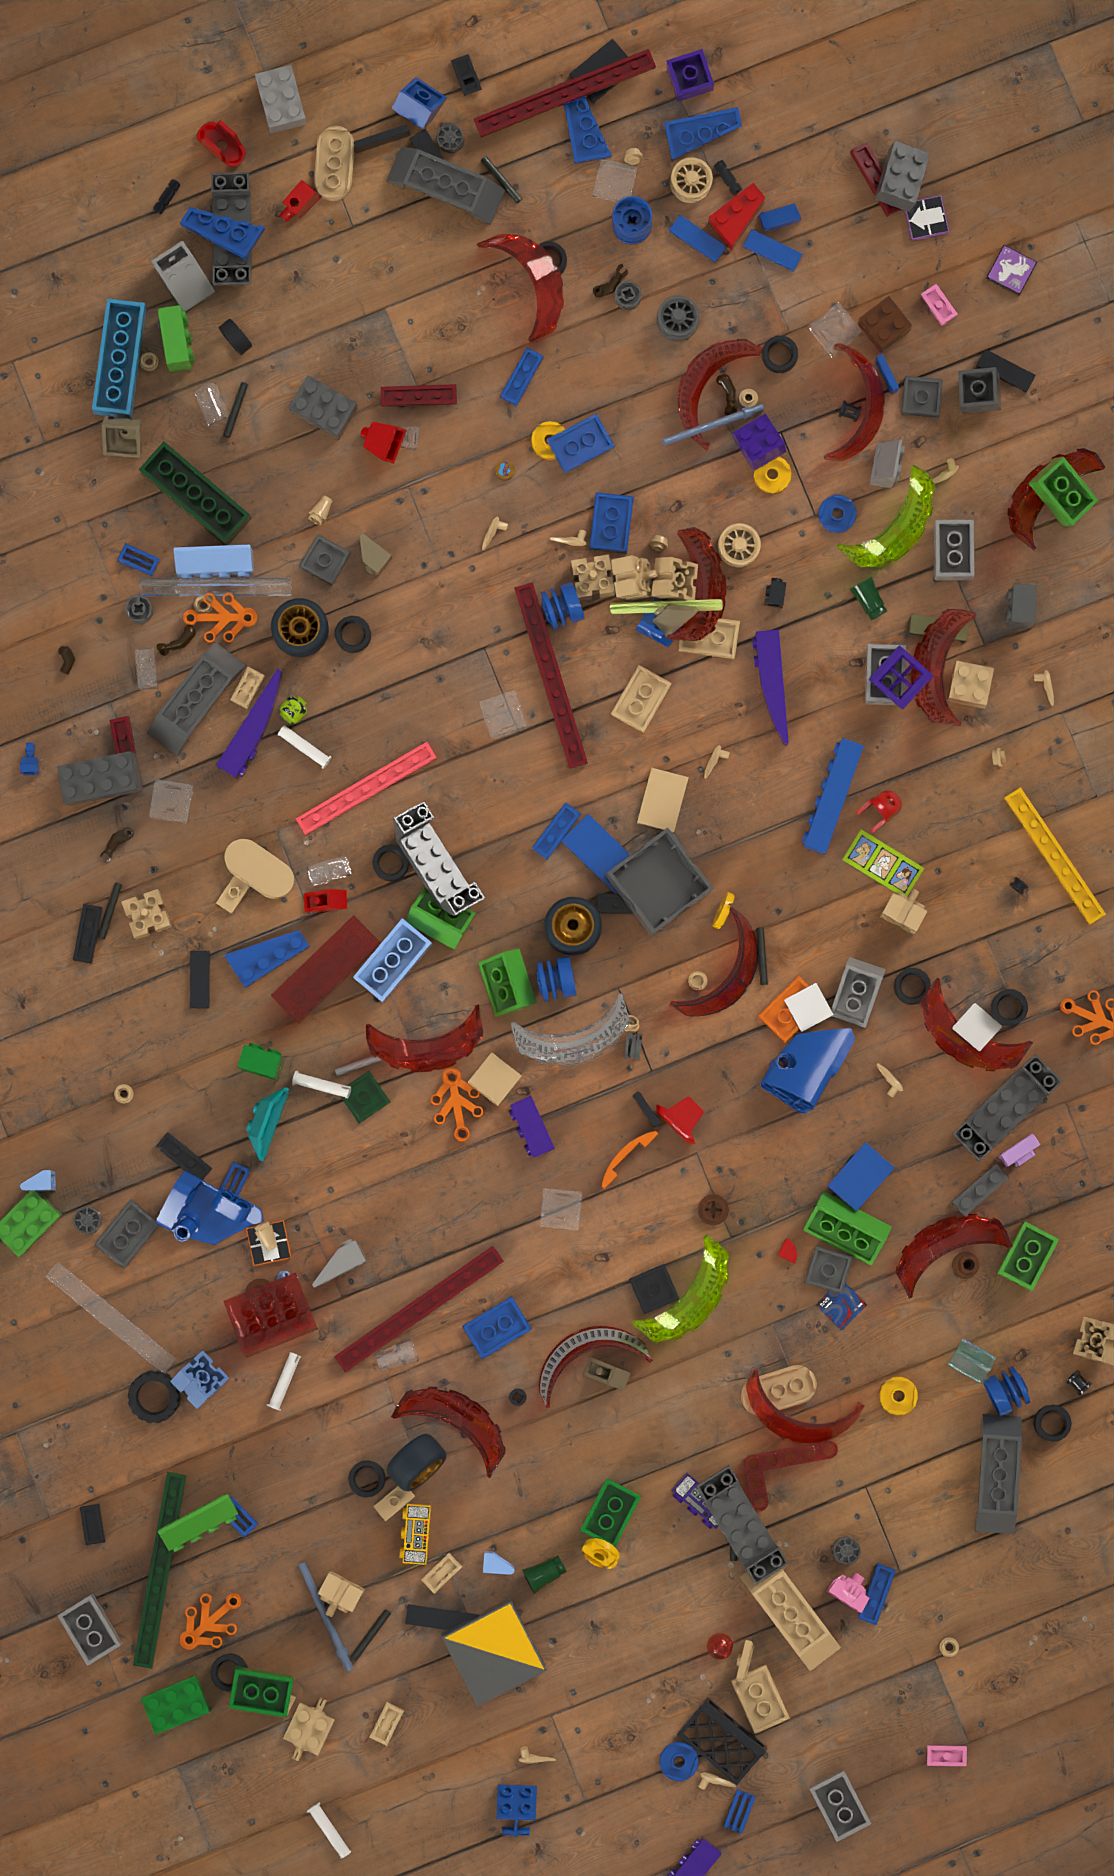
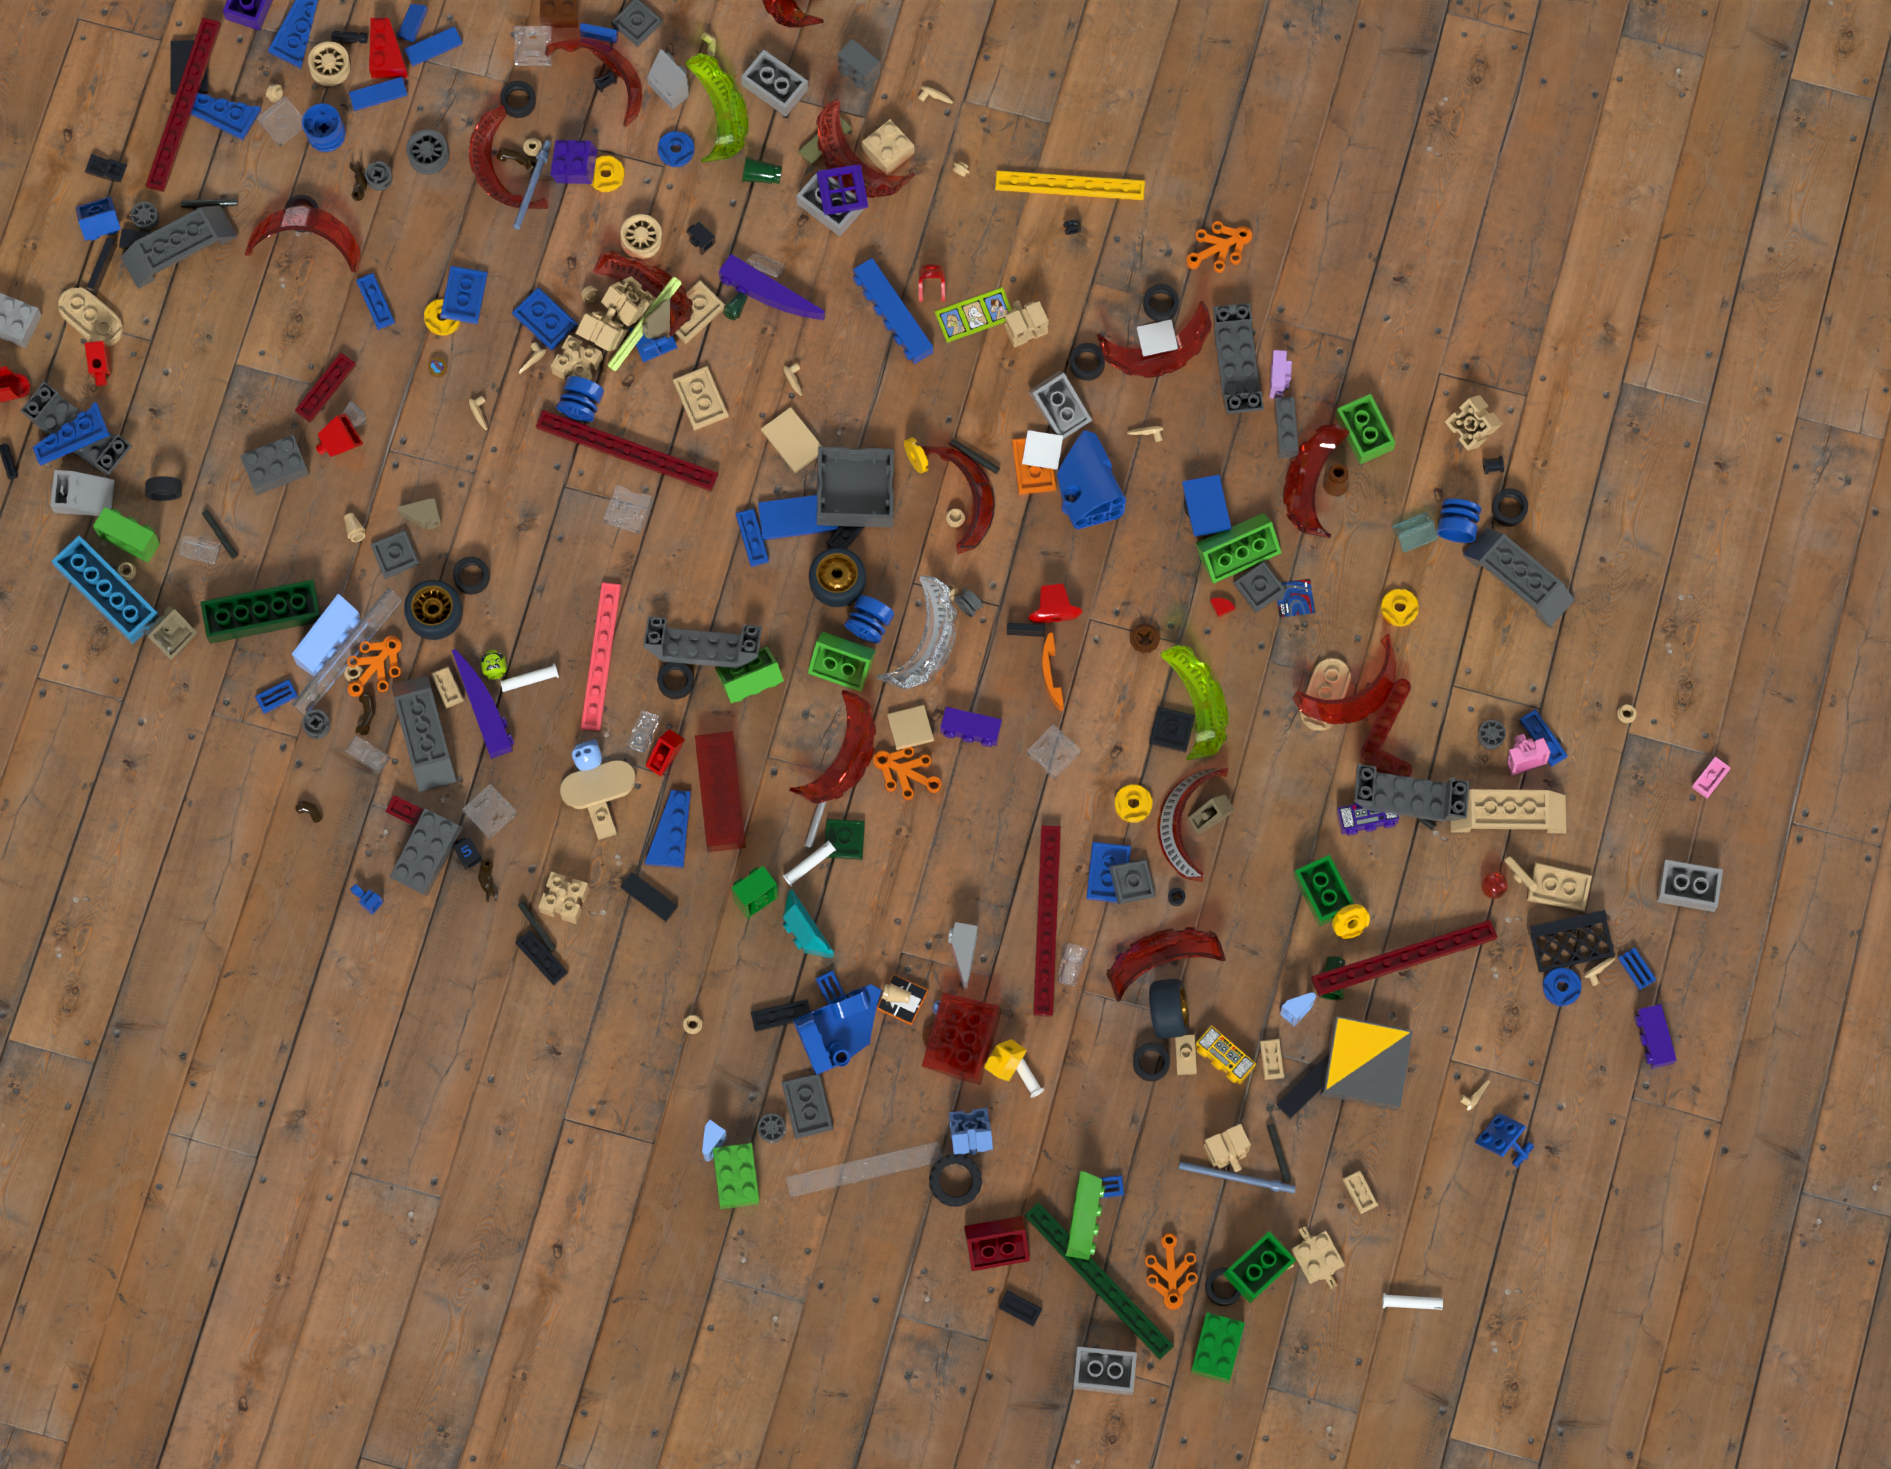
camera: 55 degrees left, 10 degrees down
(125, 810) = (467, 853): none -> black brick
(129, 1467) = (996, 1243): none -> dark red slope
(271, 1363) = (1003, 1061): none -> yellow torso
(275, 842) = (587, 755): none -> light blue helmet
(392, 960) = (754, 733): light blue slope -> none
(502, 1353) = (1132, 881): none -> dark grey tile
(569, 1292) = (1129, 814): none -> yellow tile
(602, 1619) = (1404, 958): none -> dark red plate
(738, 667) = (735, 306): none -> clear green cone
(793, 663) = (766, 264): none -> clear piece

